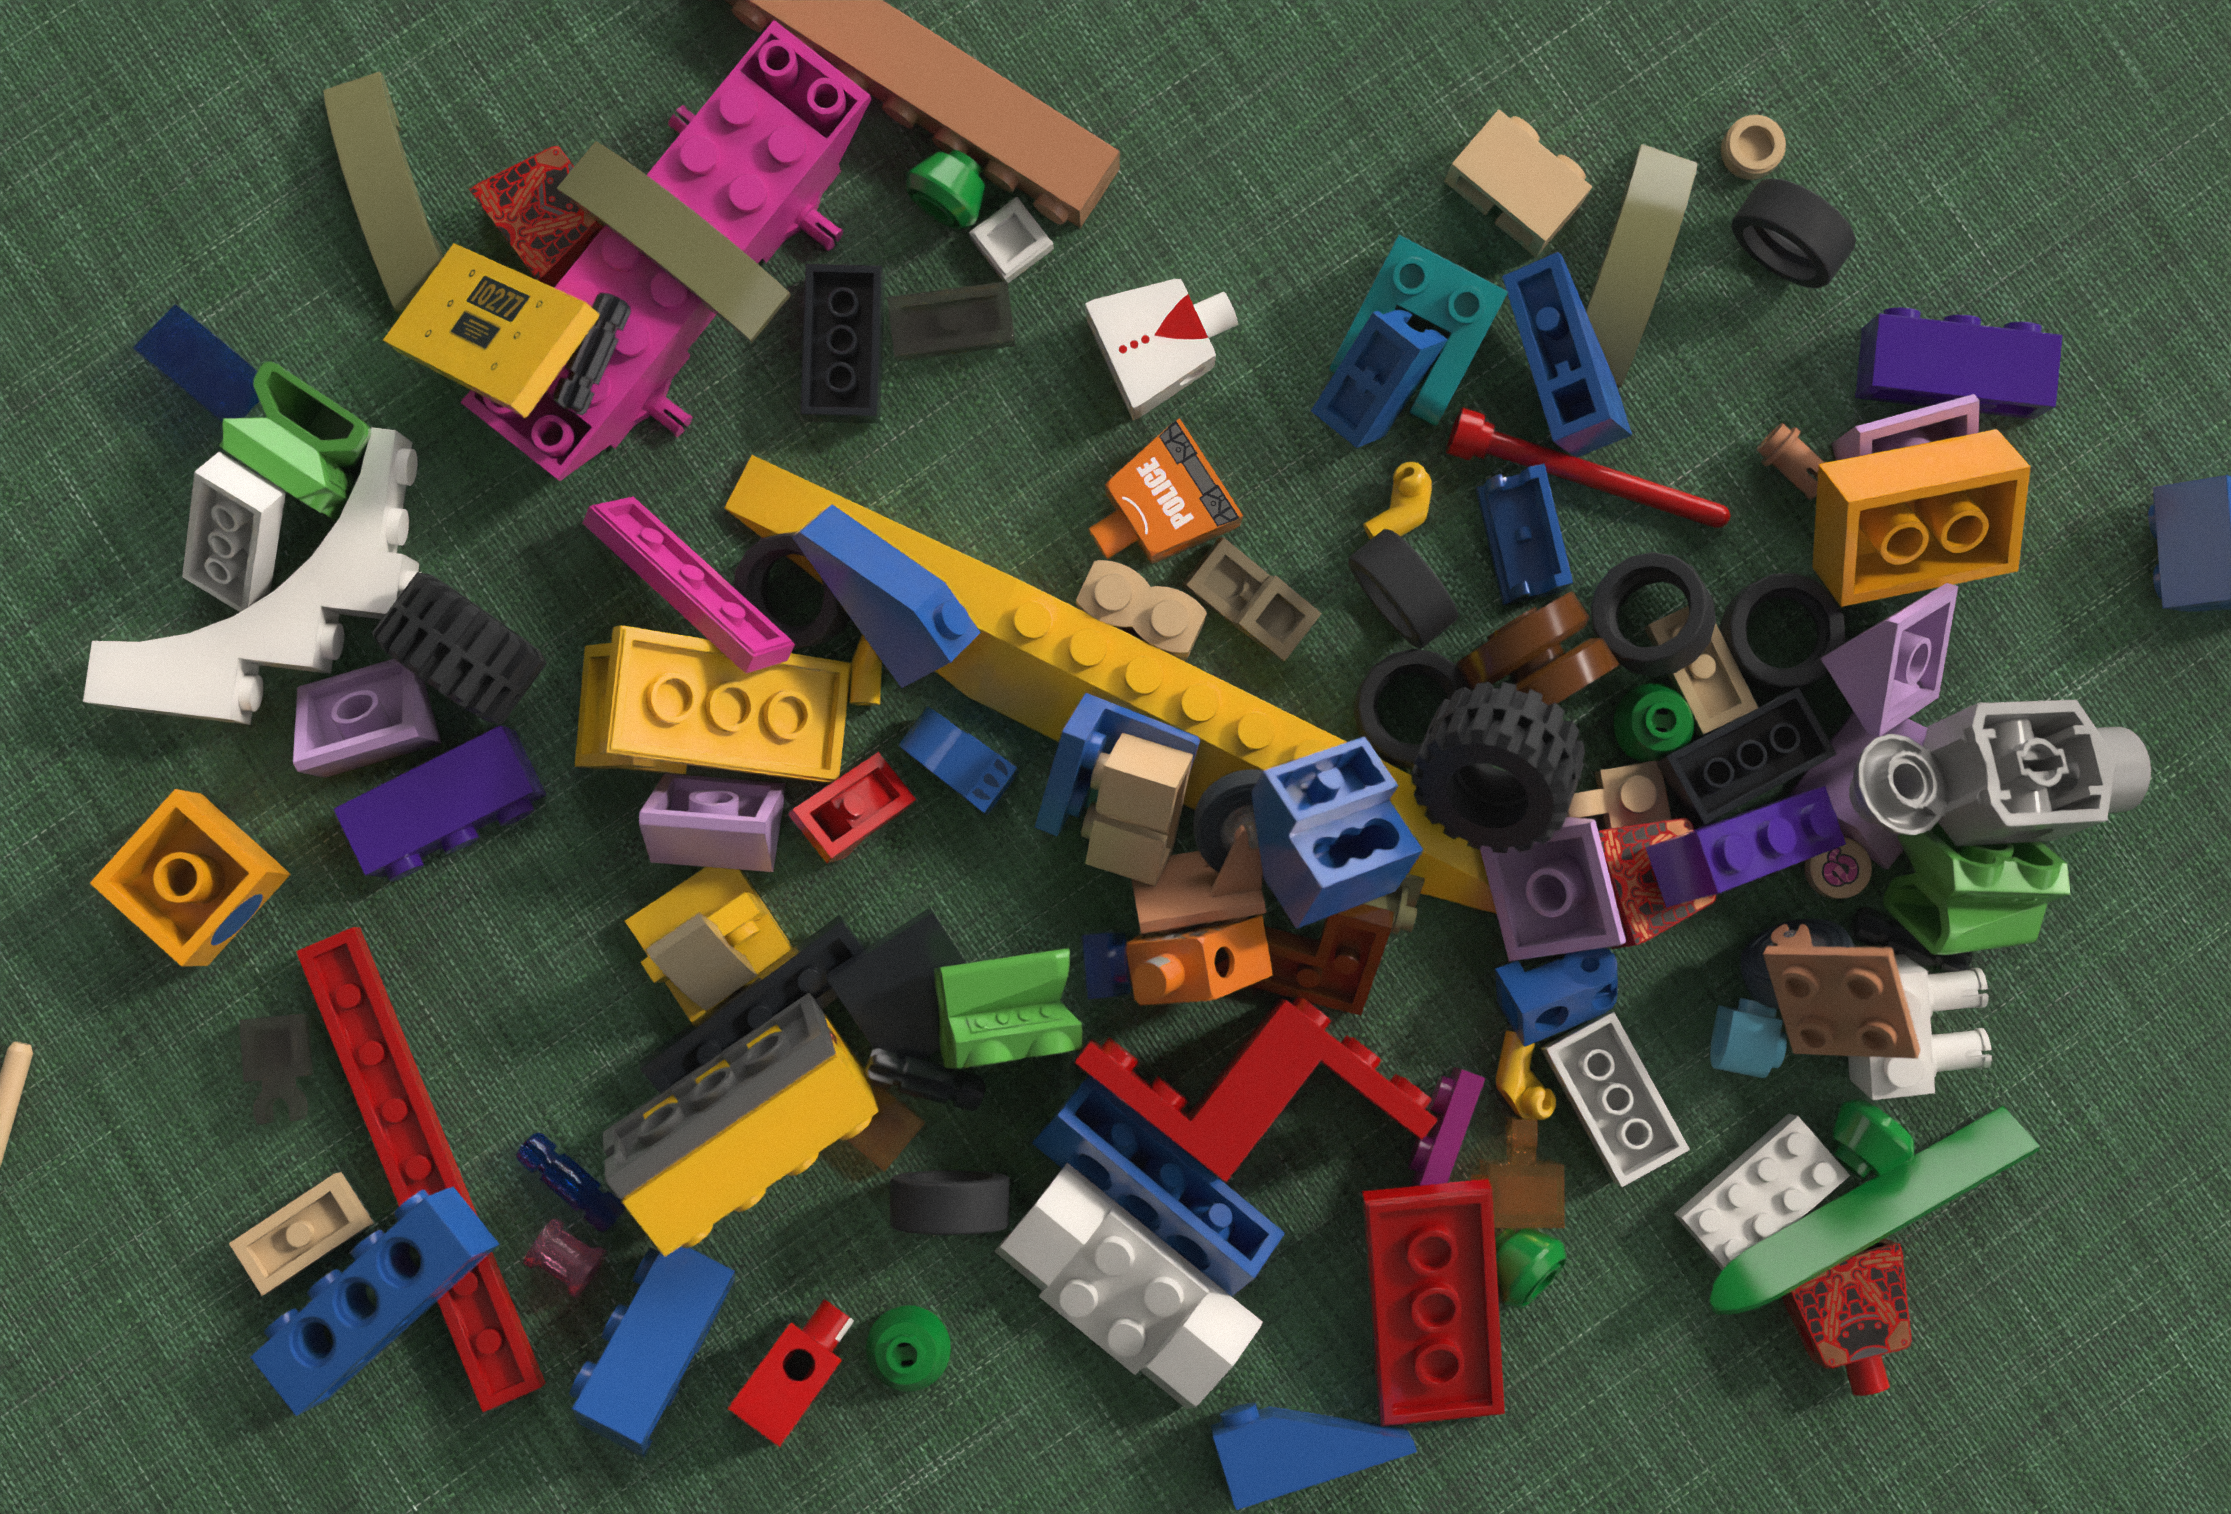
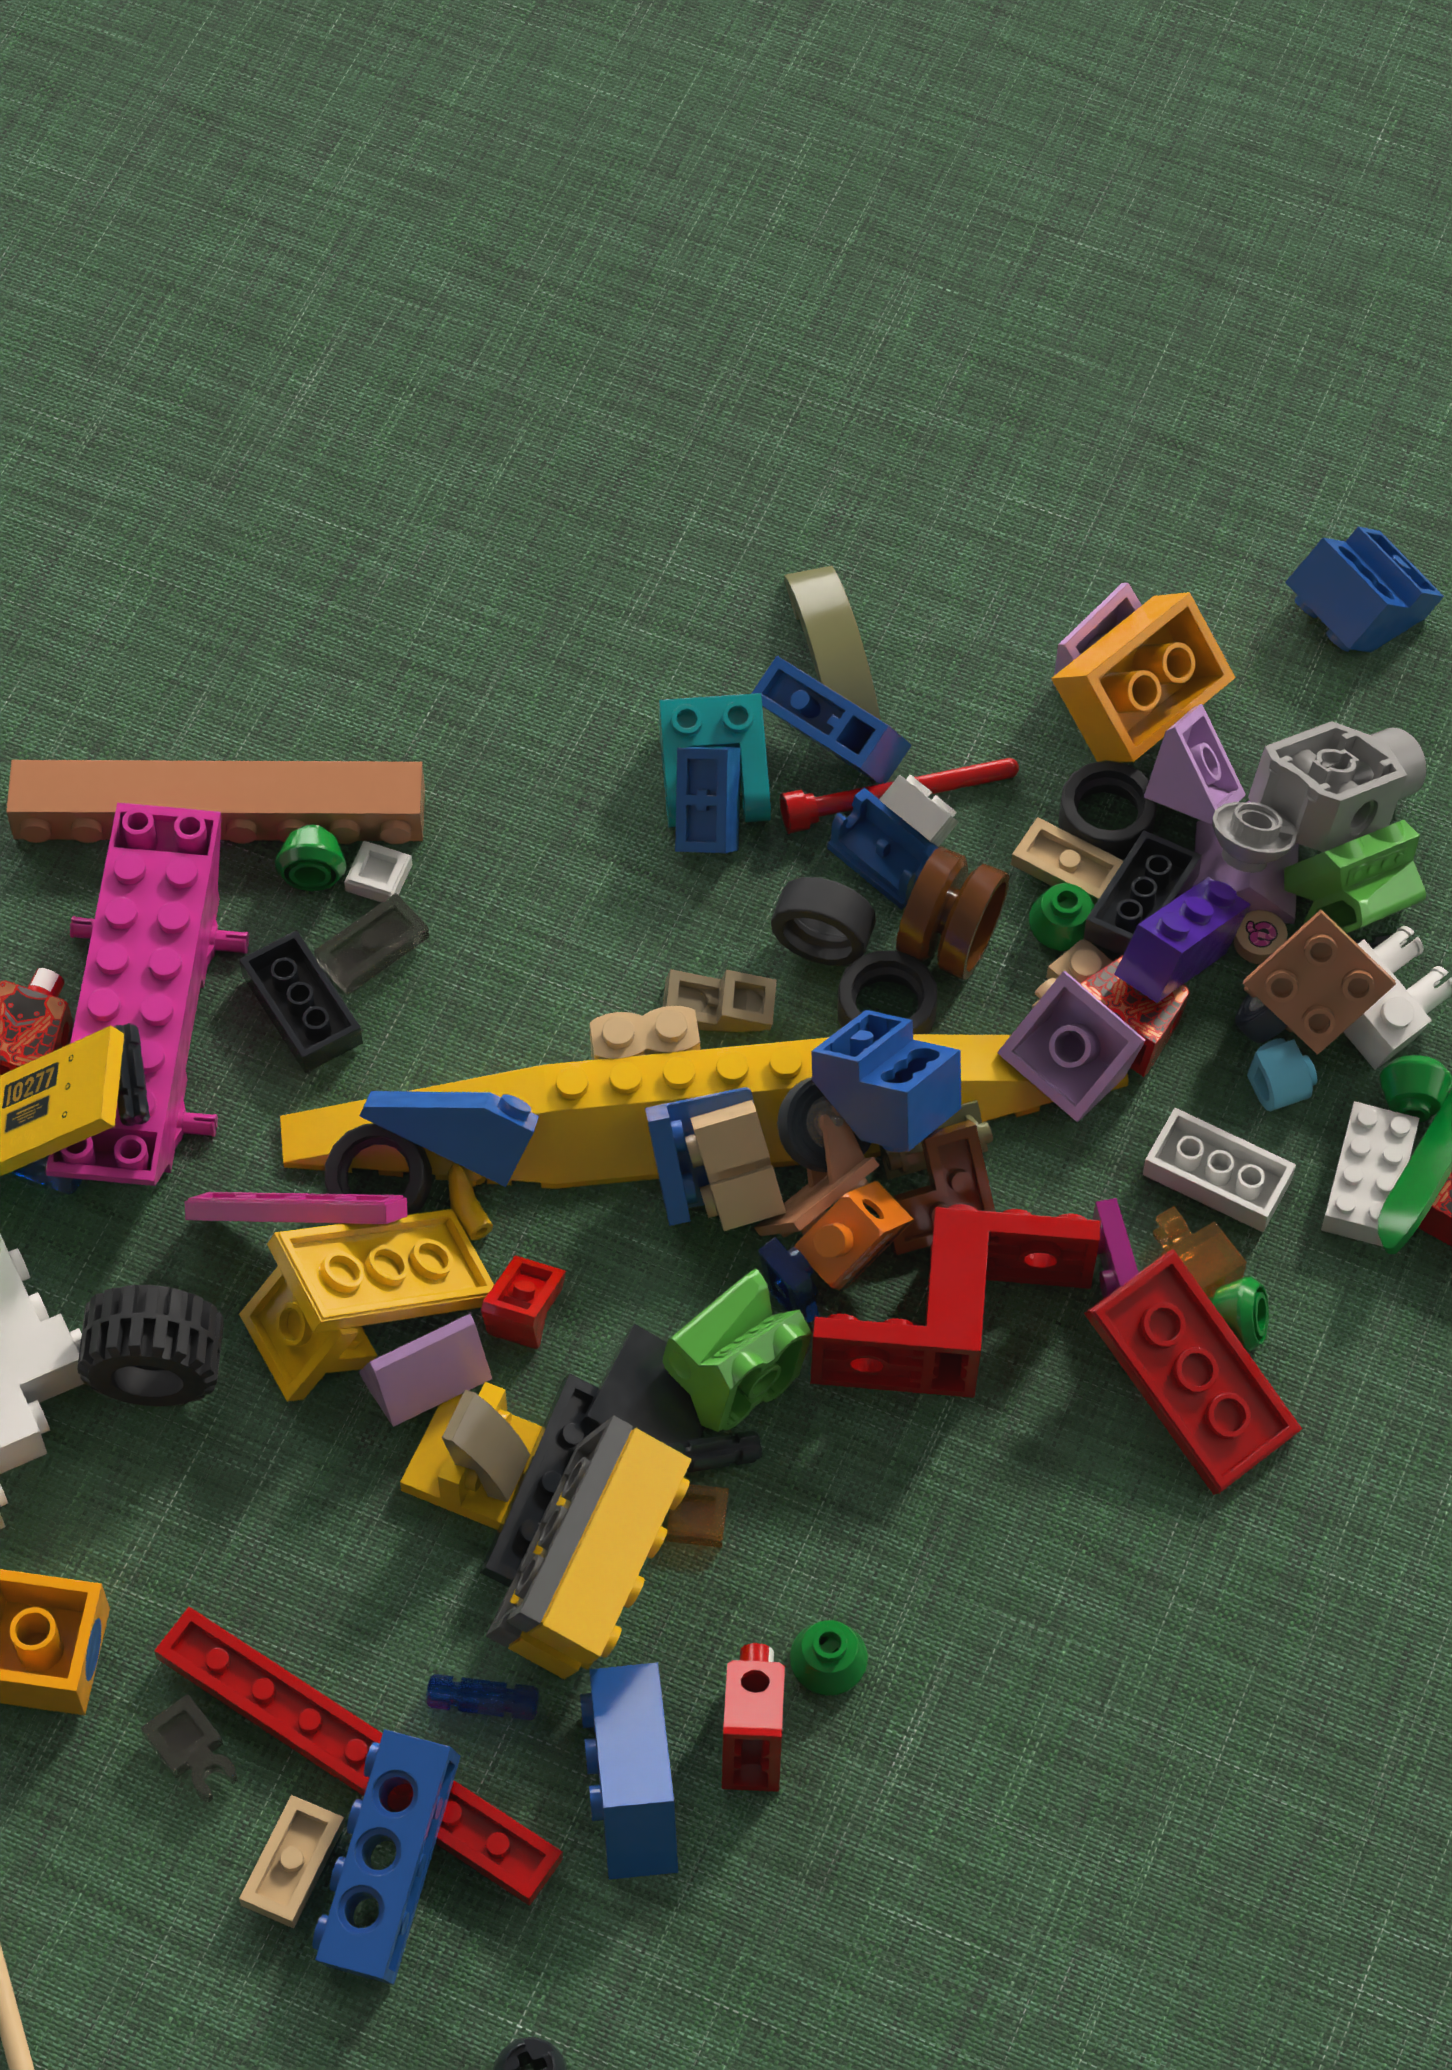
camera: 35 degrees left, 25 degrees down
(361, 719) = (102, 1459): lavender slope -> none
(441, 804) = (201, 1481): dark purple brick -> none
(565, 1257) = (516, 1749): clear pink bush -> none
(675, 239) = (138, 970): olive slope -> none
(949, 1202) = (787, 1515): black tyre -> none
(959, 760) = (580, 1224): blue leg -> none
(1128, 1289) = (963, 1505): white piece -> none
(1157, 339) = (530, 873): white torso -> none
(1160, 1185) = (959, 1401): blue brick -> none
(1165, 500) = (613, 966): orange torso -> none
(1289, 1450) = (1167, 1541): blue slope -> none
(1408, 502) = (780, 869): yellow arm -> none
(1510, 733) = (985, 1015): black tyre -> none
(1519, 1084) = (1138, 1201): yellow arm -> none
(1522, 178) = (710, 628): tan piece -> none
(1557, 993) = (1124, 1121): blue leg -> none
(1579, 532) = (912, 803): none -> white piece
(1633, 575) = (999, 812): black tyre -> none
(1753, 147) = (862, 536): tan tile -> none
(1791, 458) = (1034, 703): nougat pin -> none
(1793, 233) = (928, 540): black tyre -> none
(1939, 361) = (1066, 592): dark purple brick -> none

